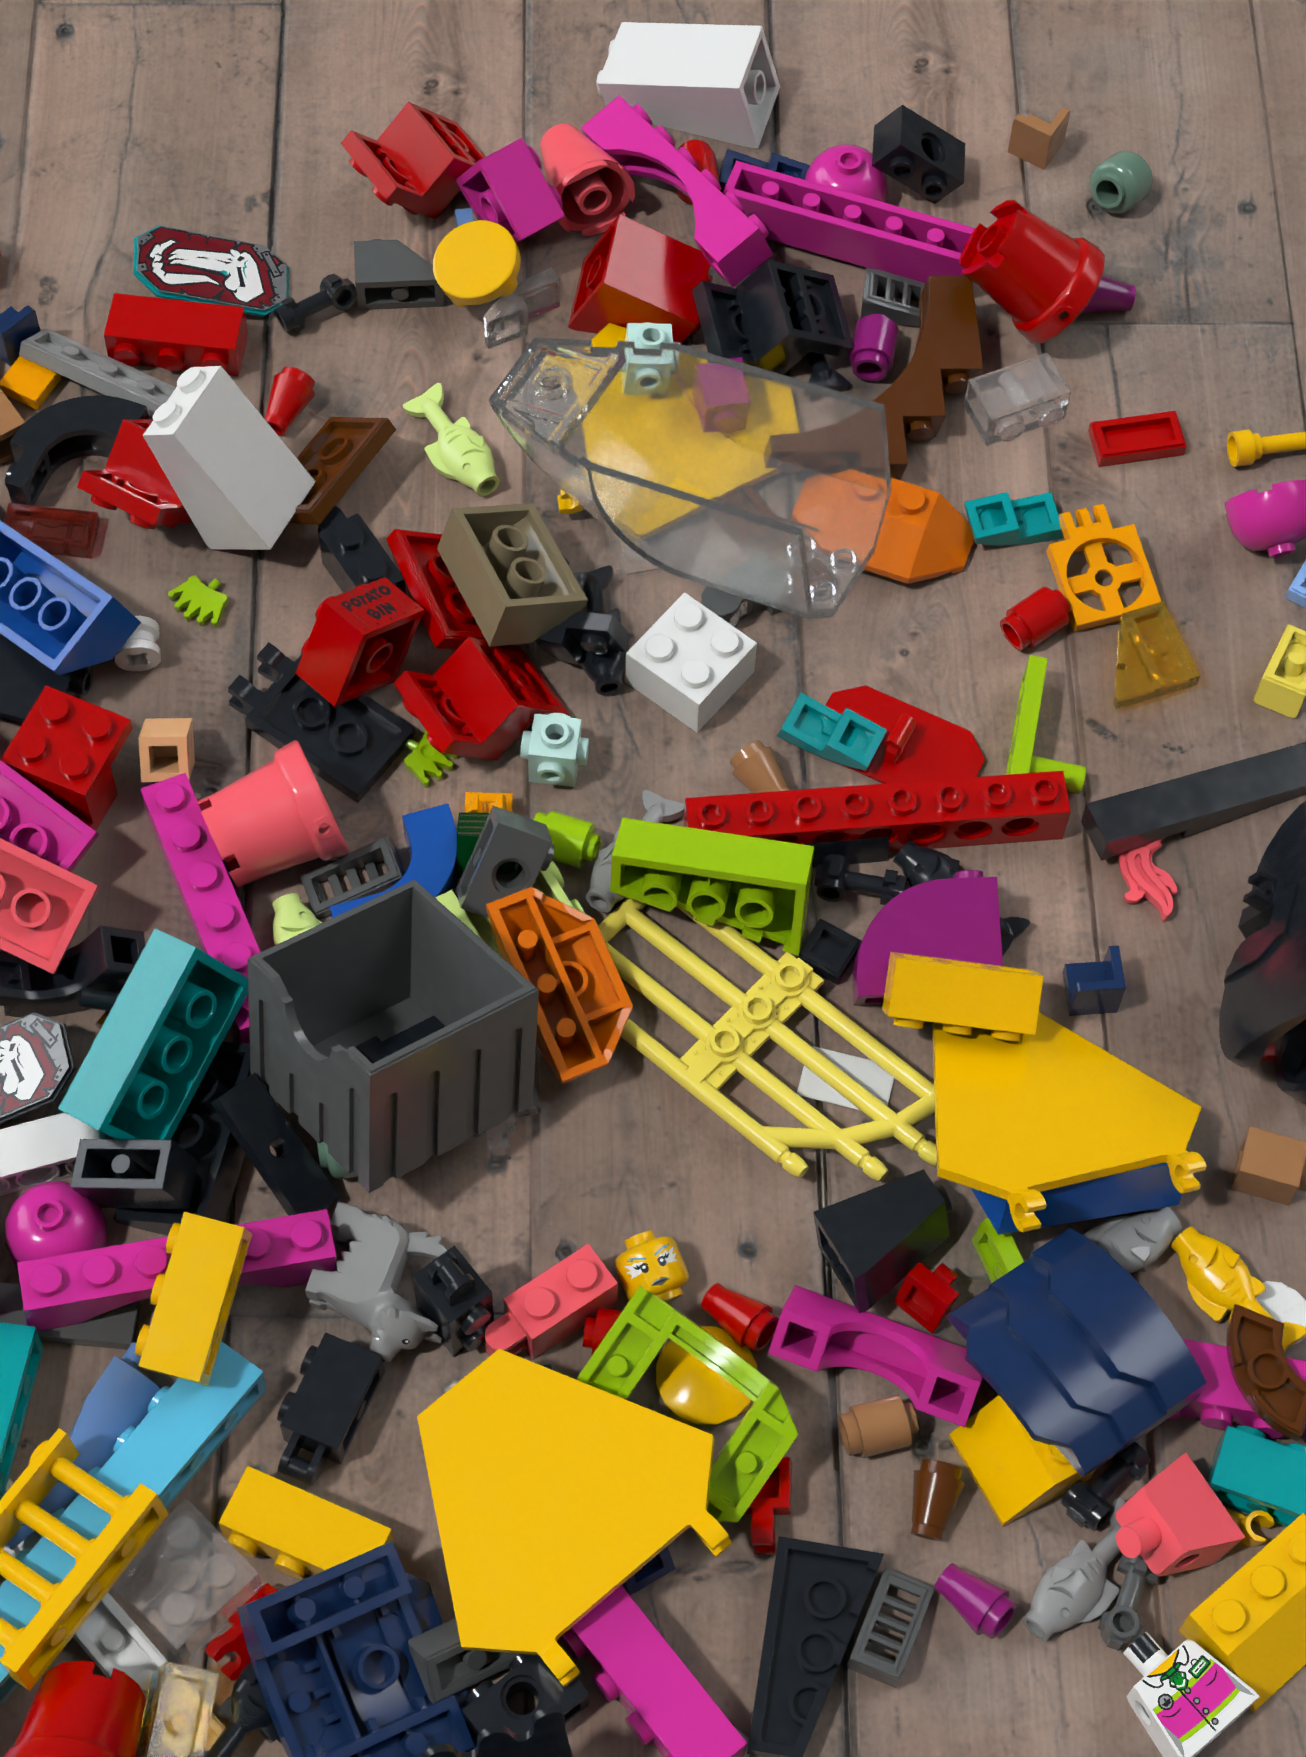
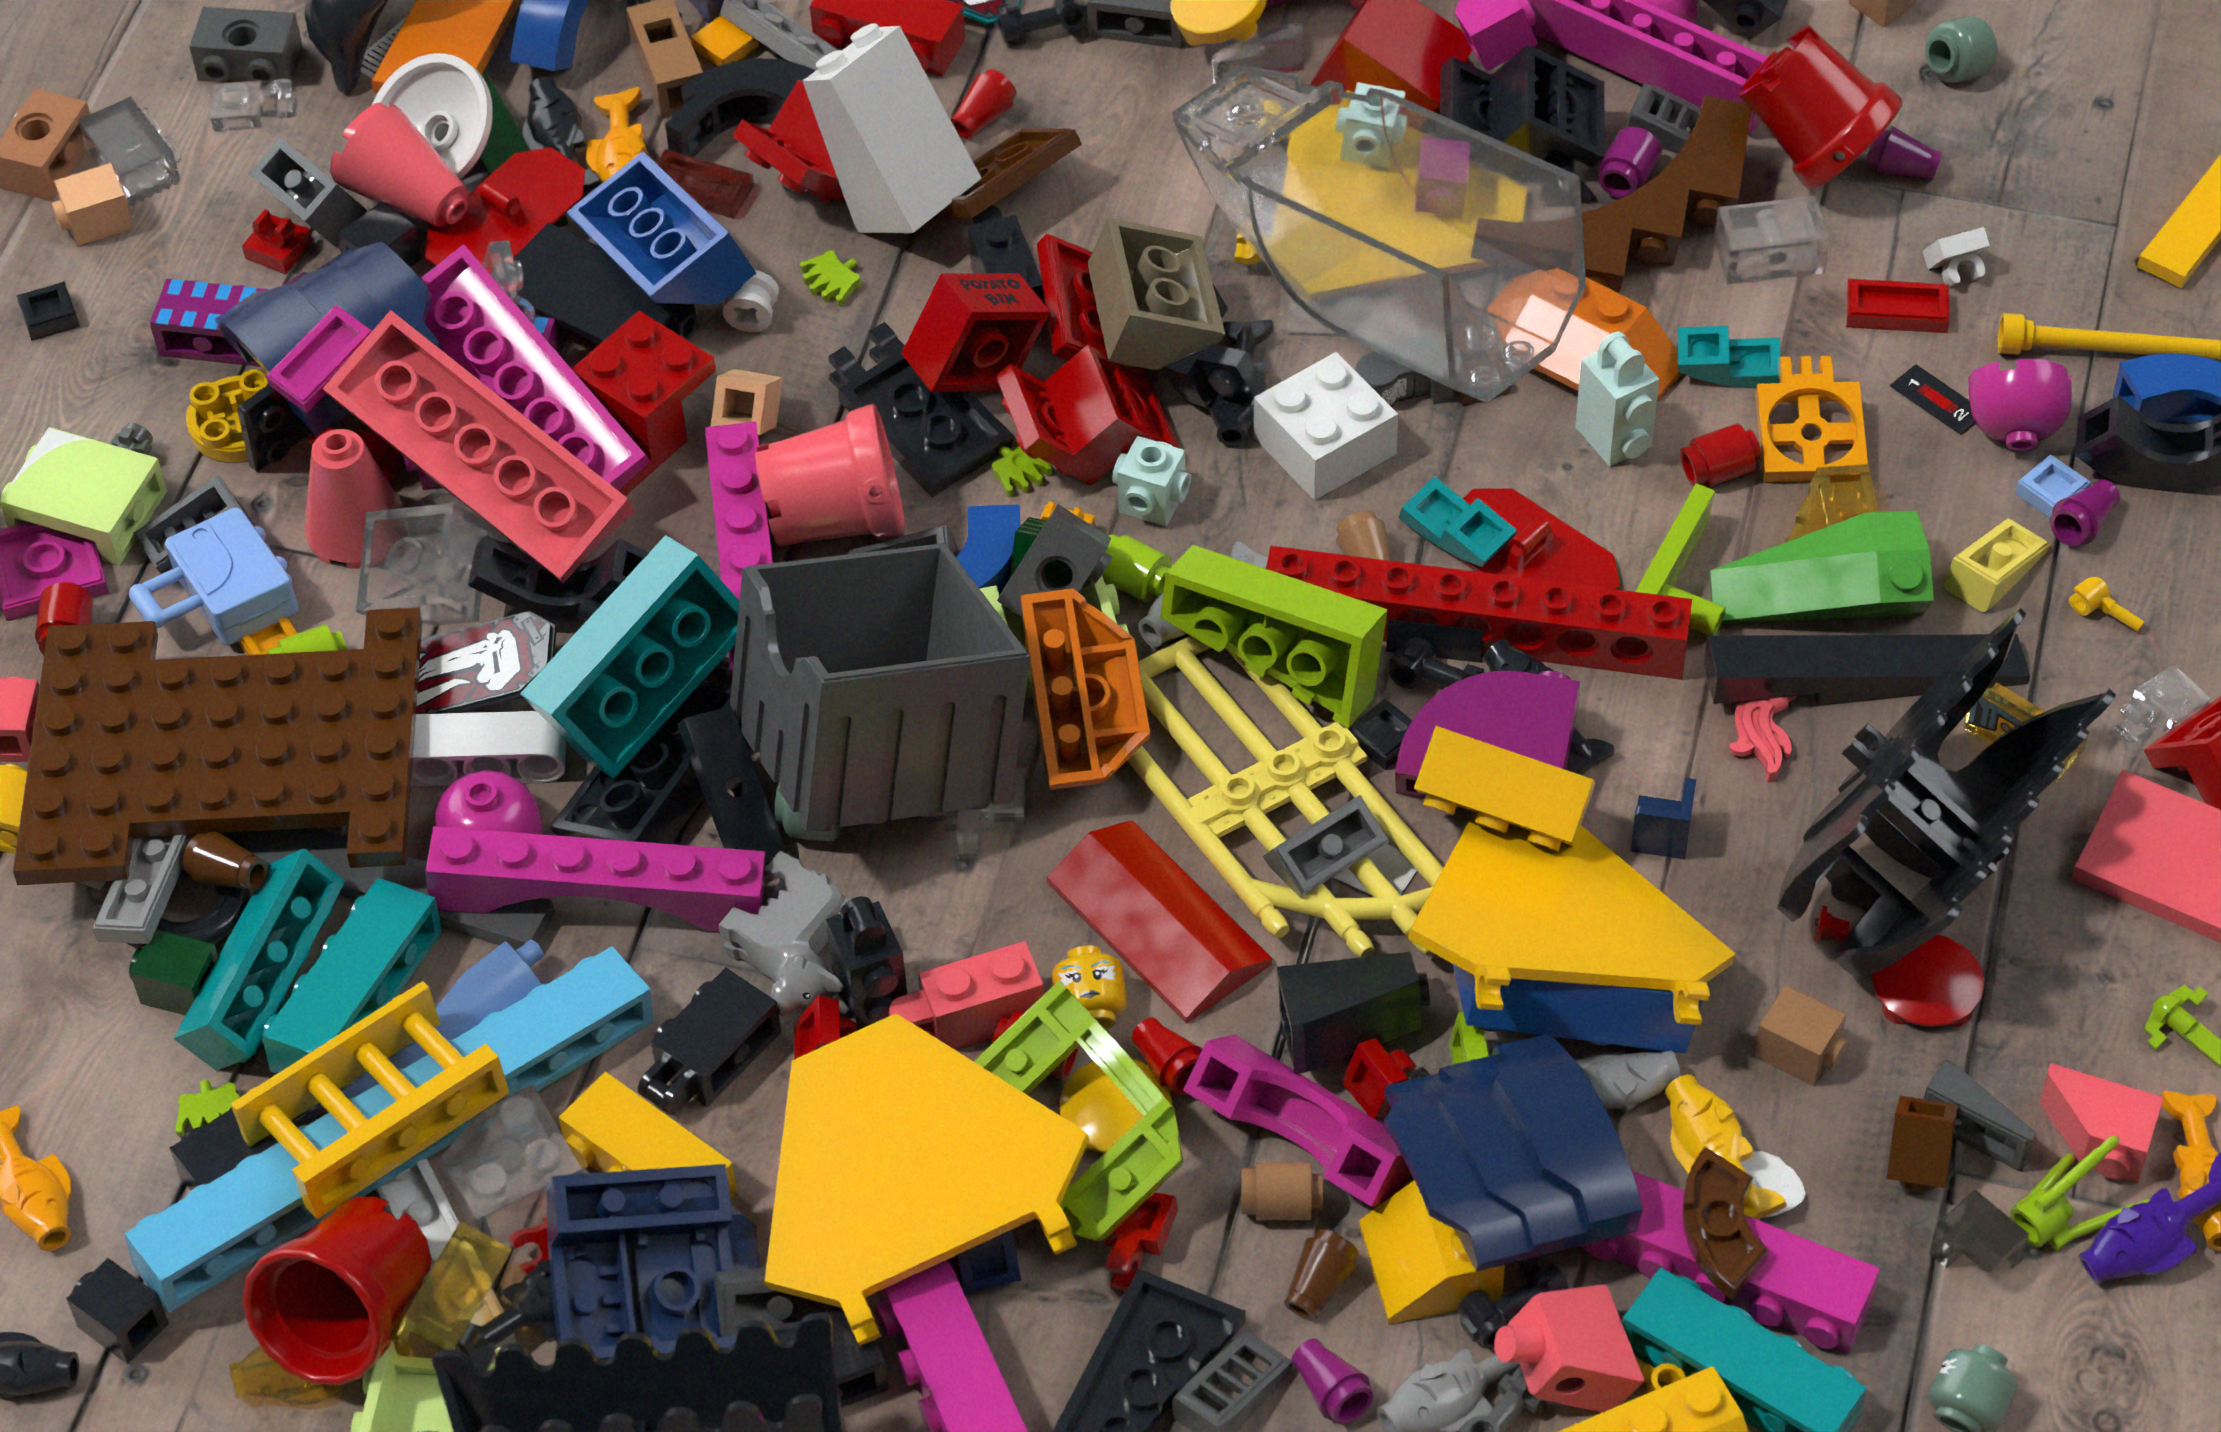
camera: 20 degrees right, 10 degrees down
(134, 1173) = (580, 776): black brick -> none
(193, 1298) = (597, 893): yellow brick -> none
(425, 1374) = (820, 1026): none -> red tile
(459, 450) = (1150, 183): yellowish green animal -> none
(686, 1180) = (1157, 919): none -> red slope
(820, 1082) = (1327, 847): none -> dark grey slope
(940, 590) = (1617, 400): none -> light aqua brick
(1174, 379) = (1955, 251): none -> white tile
(1176, 706) = (1847, 570): none -> bright green wedge
(1194, 520) = (1935, 398): none -> black sticker

